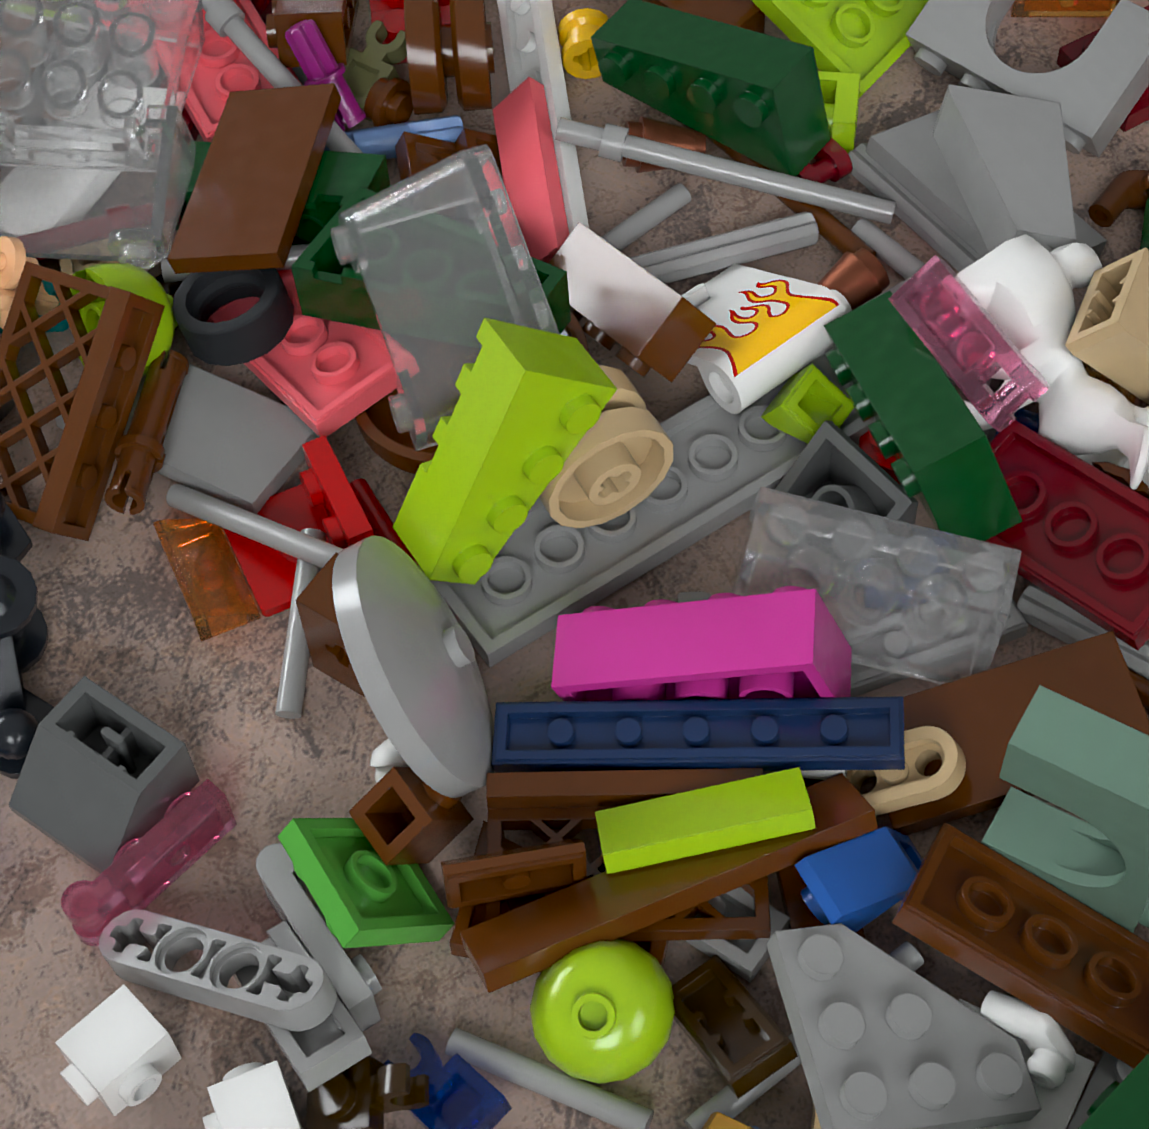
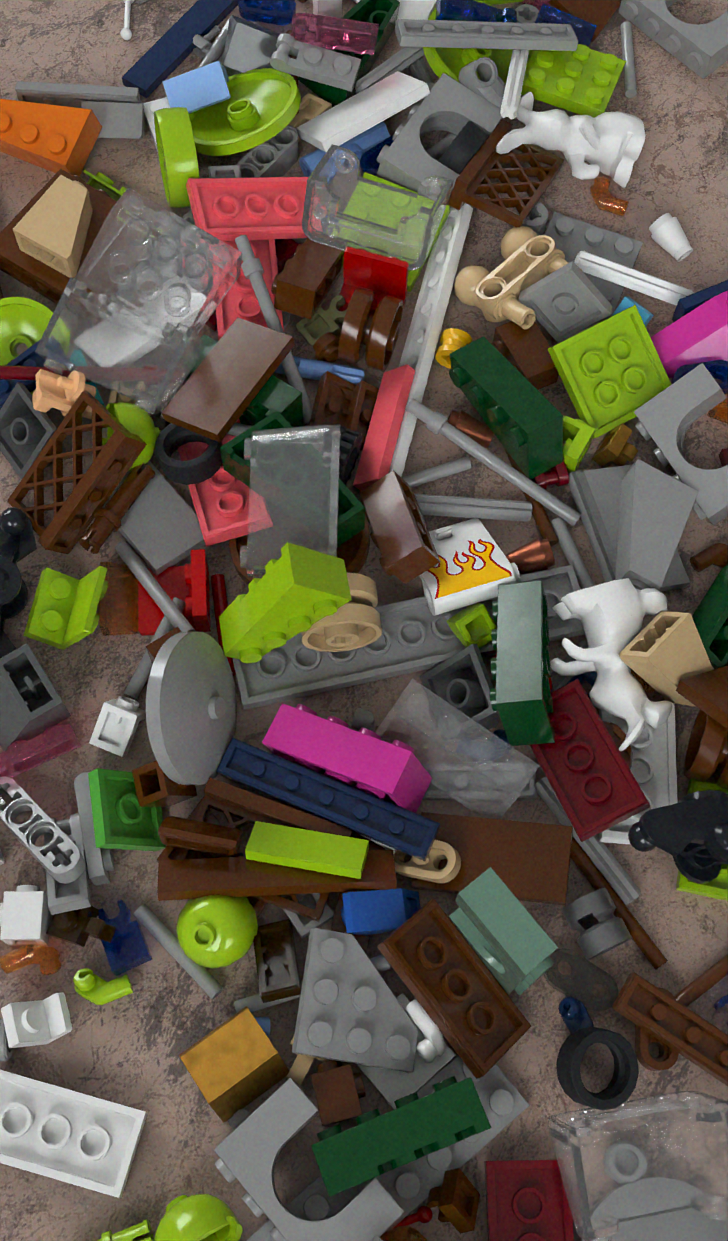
camera: 15 degrees right, 10 degrees up
(128, 616) = (65, 607): none -> lime bracket
(288, 763) = (117, 725): none -> white bracket
(322, 68) = (294, 322): magenta axle -> none
(900, 94) = (615, 447): none -> pearl gold tile
(967, 342) = (562, 635): clear pink plate -> none

